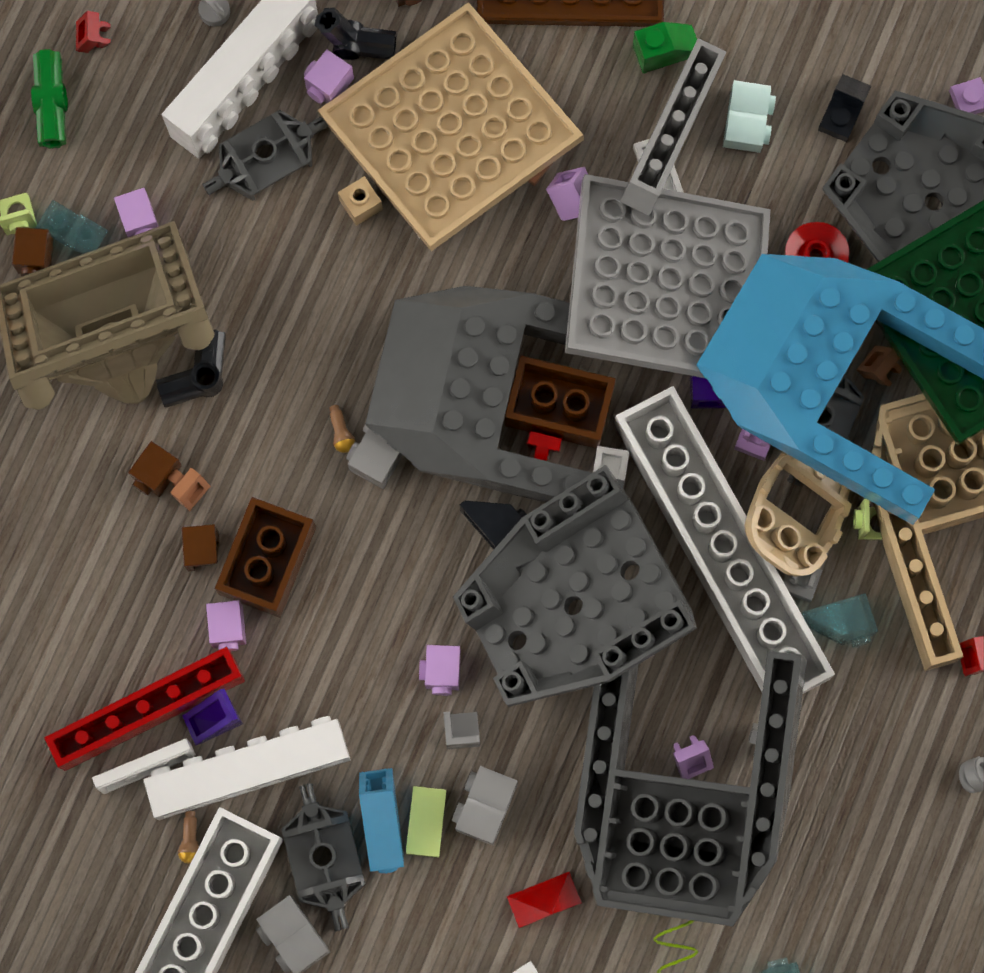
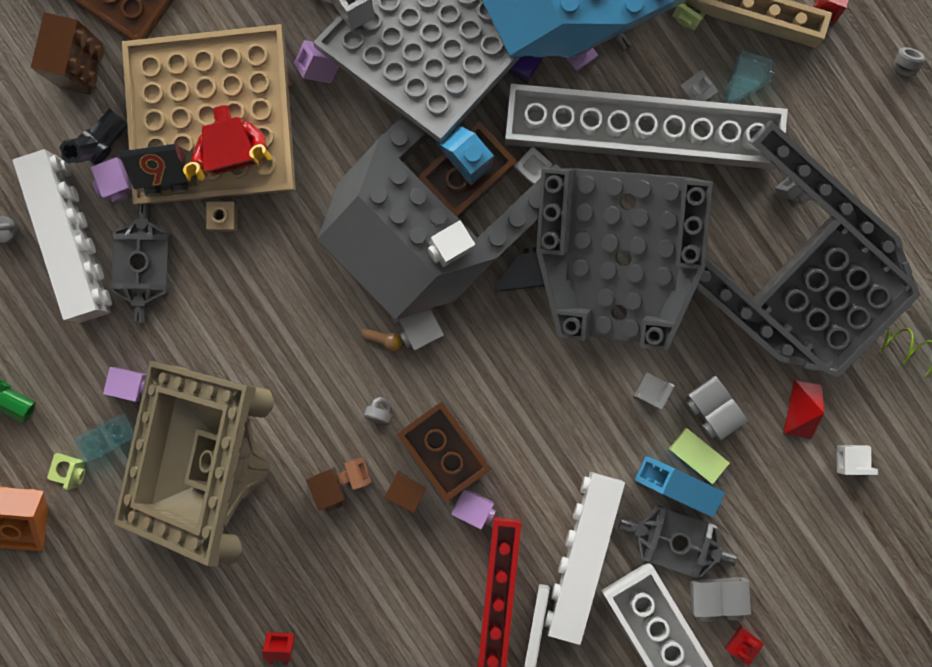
camera: 60 degrees left, 10 degrees up
(32, 250) = (103, 477): reddish brown brick -> none
(185, 385) = (278, 429): black piece -> none
(189, 844) = (613, 631): medium nougat piece -> none
(212, 717) = (533, 559): dark purple slope -> none
(260, 471) = (377, 415): none -> light grey tile
(366, 112) = (158, 169): none -> black slope
(428, 157) = (226, 146): none -> red torso
(441, 669) = (602, 378): lavender brick -> none
(470, 422) = (450, 244): none -> white brick
(544, 444) = (490, 204): red tile -> none
(569, 385) = (467, 153): none -> dark azure slope
(693, 759) = (775, 246): lavender tile -> none
(782, 538) = (667, 81): tan slope -> none

